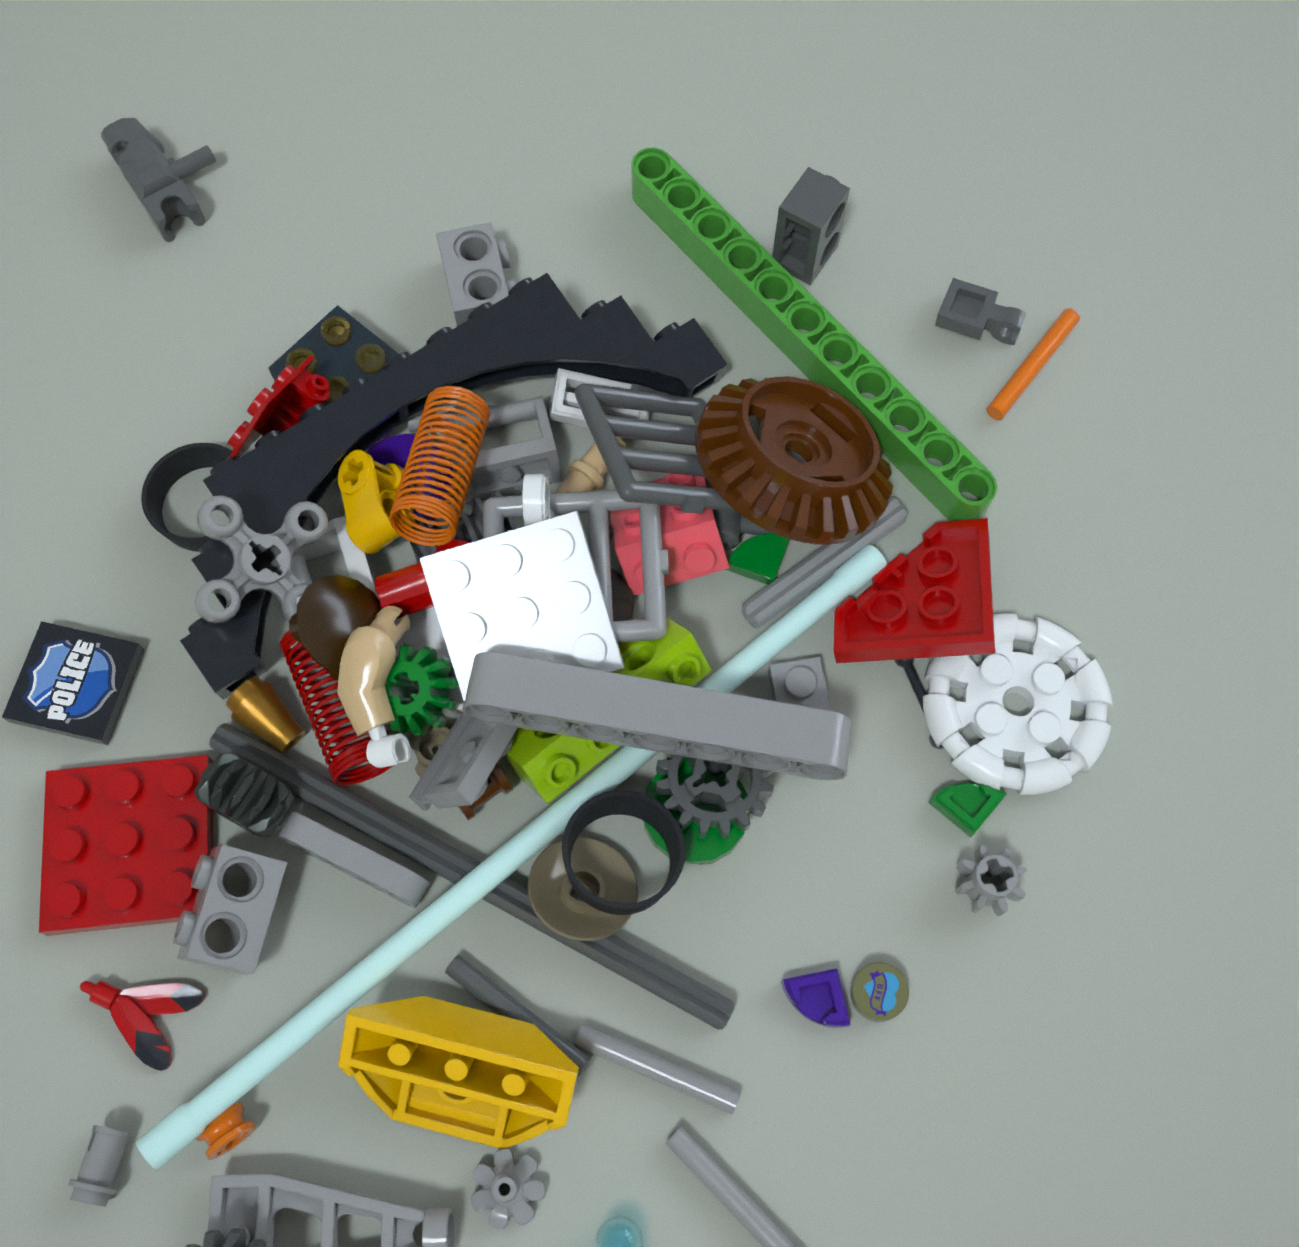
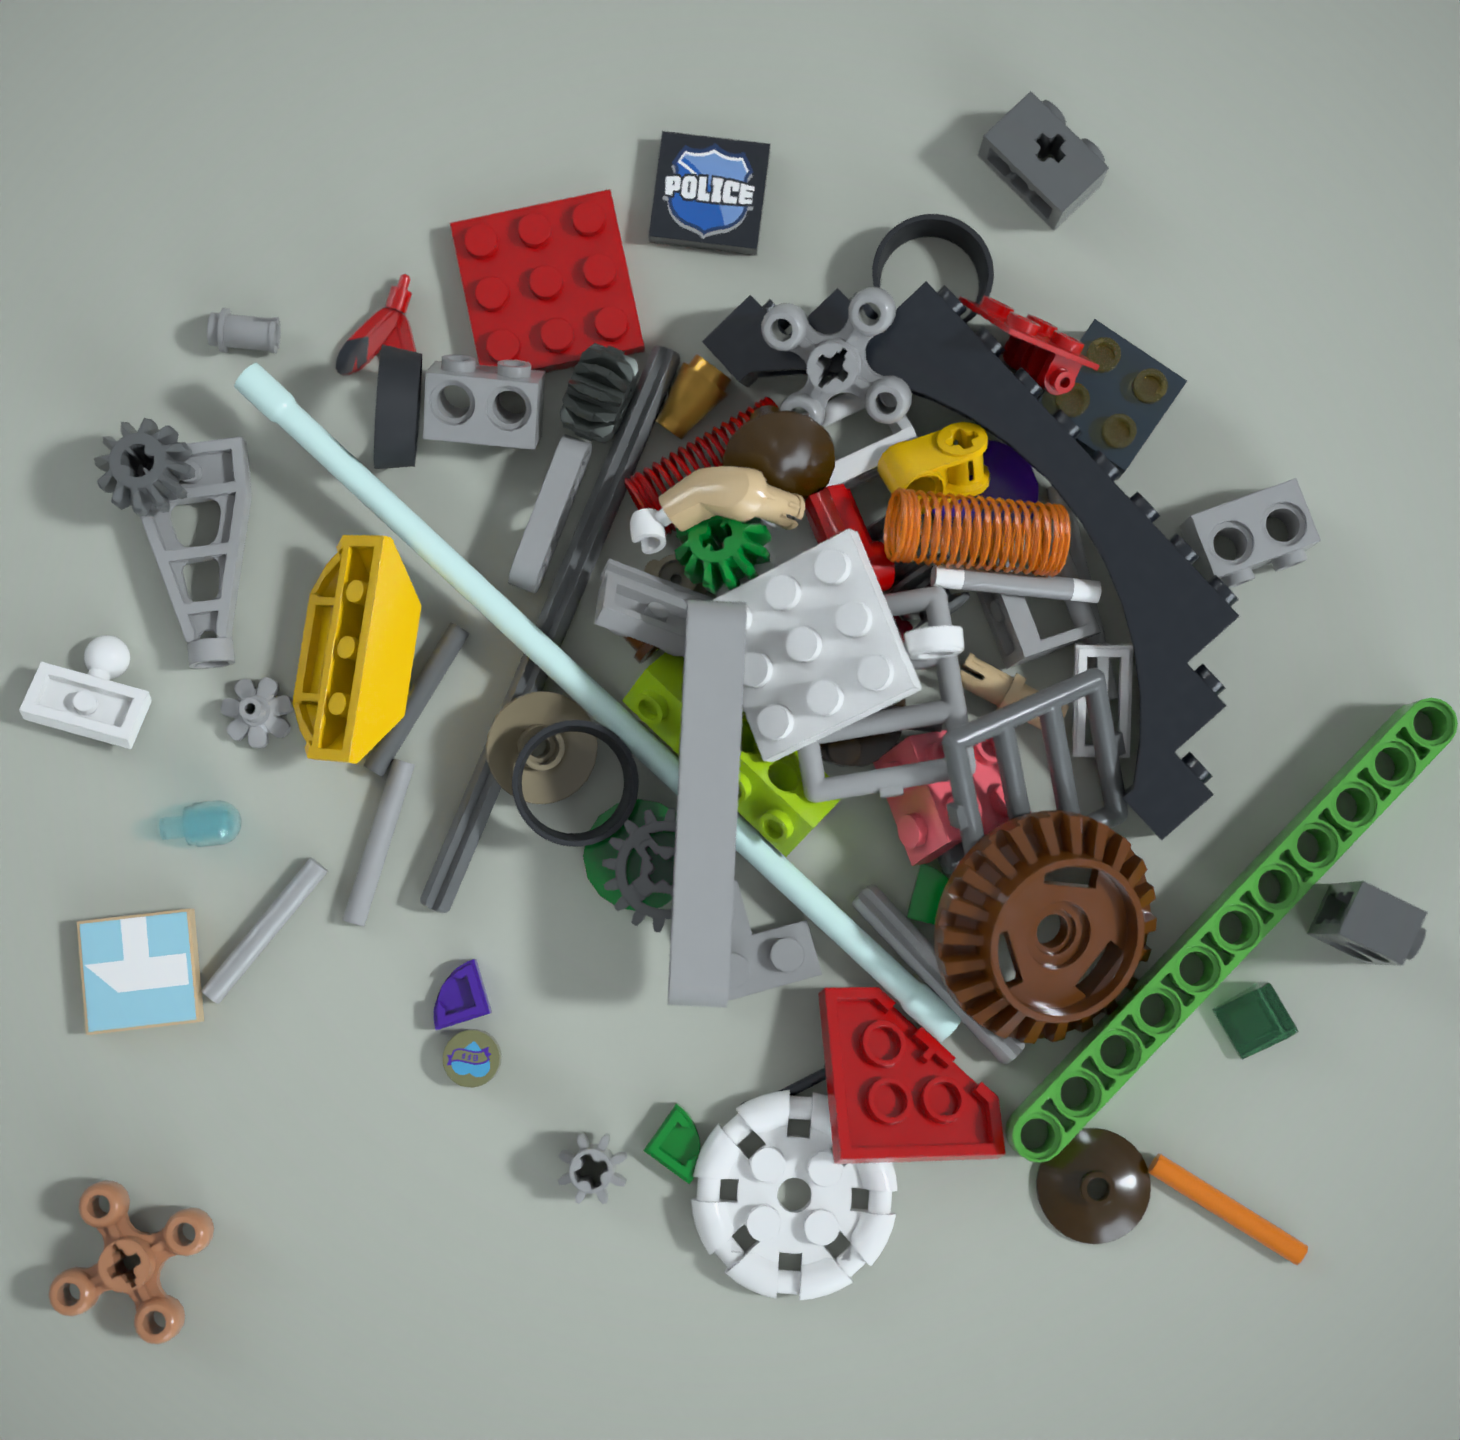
camera: 85 degrees right, 15 degrees up
(118, 397) = (1051, 186): none -> dark grey brick
(153, 176) = (1345, 133): dark grey piece -> none
(216, 994) = (397, 408): none -> black tyre
(226, 1131) = (281, 443): orange bush -> none
(490, 448) = (1016, 584): none -> light grey bar
(879, 322) = (1255, 1019): none -> clear green slope
(972, 309) = (1288, 1129): dark grey plate -> none
(1023, 480) = (1064, 1183): none -> dark brown dish

